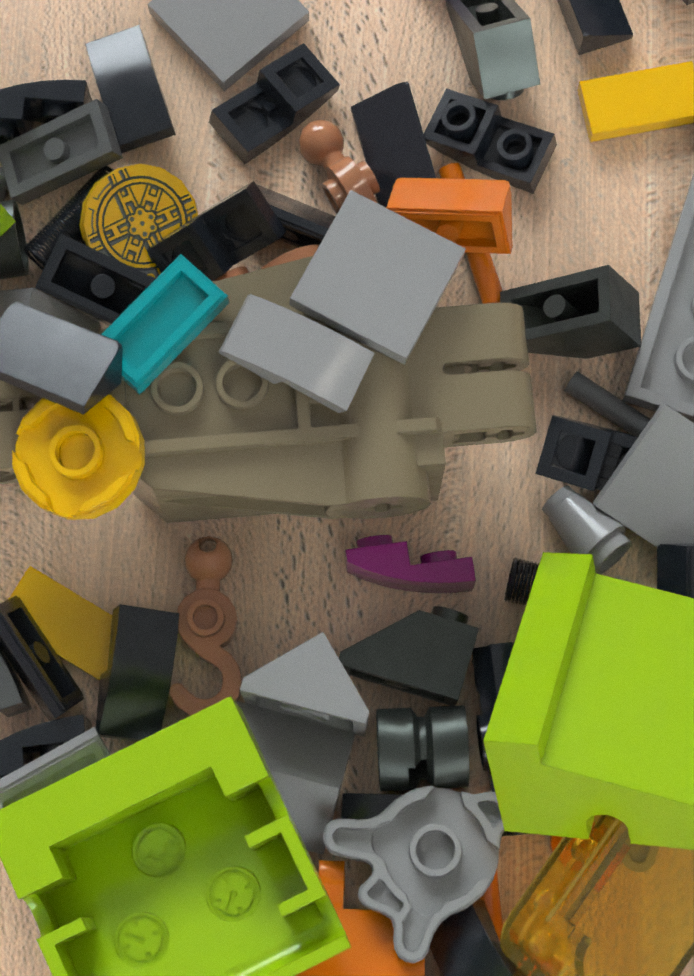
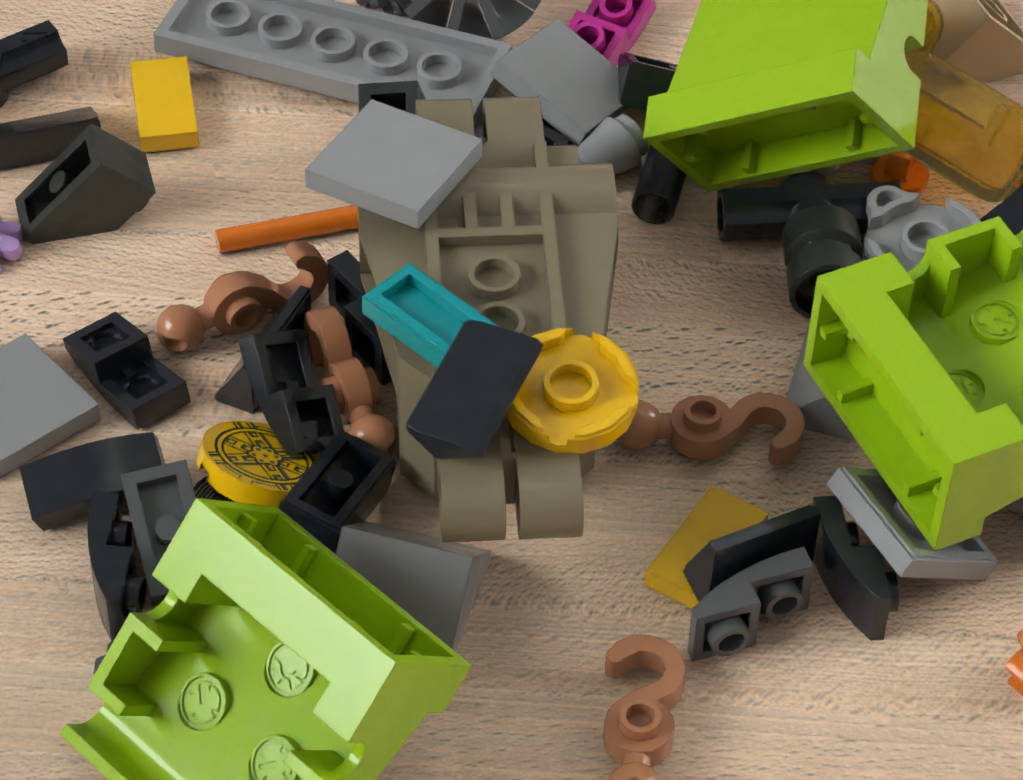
camera: 90 degrees left, 30 degrees down
(138, 673) = (741, 463): black slope -> none
(296, 352) = (470, 214): light grey slope -> none
(310, 686) = (770, 316): light grey slope -> none
(389, 565) = (641, 286): magenta slope -> none
(392, 138) = (184, 267): black slope -> none
(417, 655) = (732, 267): pearl dark grey slope -> none
(461, 210) = (275, 214): orange slope -> none
(487, 142) = (195, 208): black slope -> none

